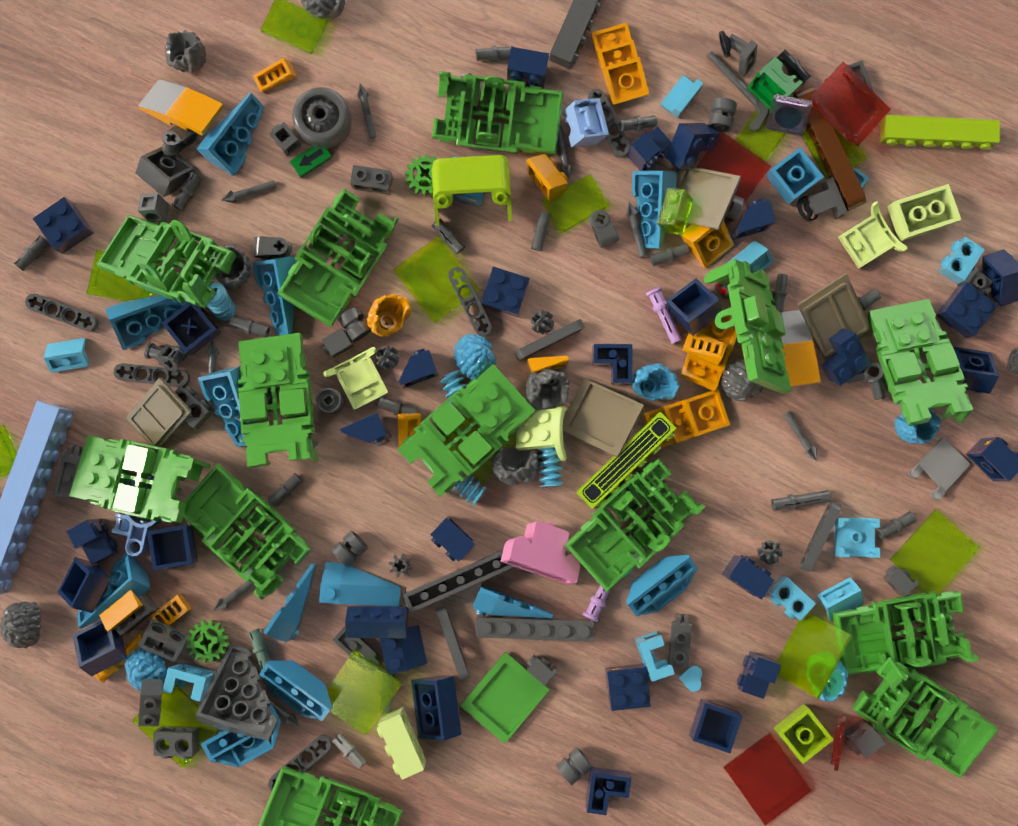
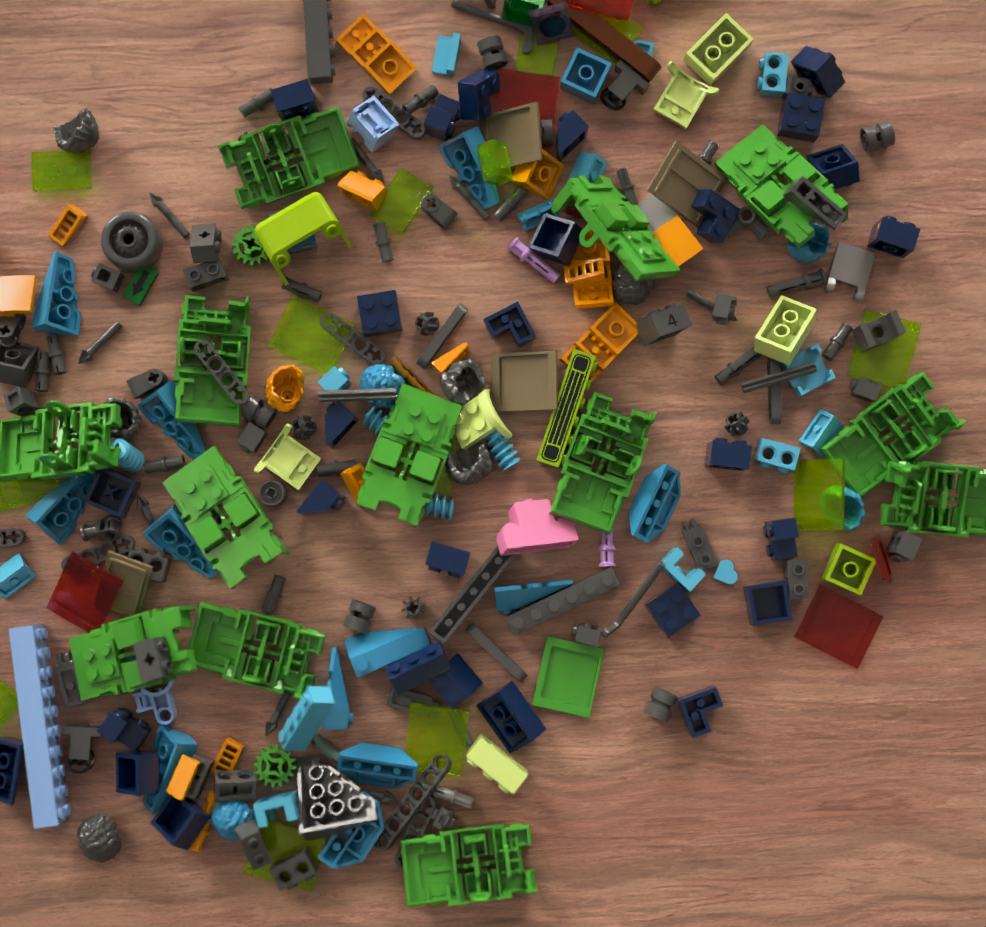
camera: 25 degrees left, 0 degrees up
(48, 533) = (80, 745): none -> dark grey piece
(121, 403) = (84, 593): none -> clear red piece
(146, 494) = (153, 659): none -> dark grey brick
(172, 547) = (199, 697): dark blue piece -> none
(206, 182) = (56, 354): none -> dark grey pin
(255, 616) = (306, 718): none -> medium azure brick
(311, 740) = (415, 805): none -> dark grey beam
(330, 765) = (443, 818): none -> dark grey gear
(339, 272) = (220, 373): none -> dark grey beam
(385, 151) = (205, 243): none -> dark grey brick
(434, 332) = (335, 380): none -> medium azure brick
(448, 353) = (357, 395): none -> dark grey axle
(502, 360) = (408, 376): none -> pearl gold pin
(600, 661) = (634, 601): none -> dark grey piece
(655, 382) = (556, 325): dark azure hair -> none
(683, 275) = (531, 217): none -> dark azure hinge
(750, 430) = (663, 324): none -> dark grey brick
(753, 716) = (796, 578): none -> dark grey brick
(811, 444) = (723, 308): none -> dark grey brick
(829, 531) = (779, 377): none -> dark grey axle
(856, 492) = (785, 330): none -> yellowish green brick
(895, 457) = (805, 281): none -> dark grey pin
(944, 393) = (814, 202): none -> dark grey slope
(950, 536) = (889, 327): none -> dark grey piece

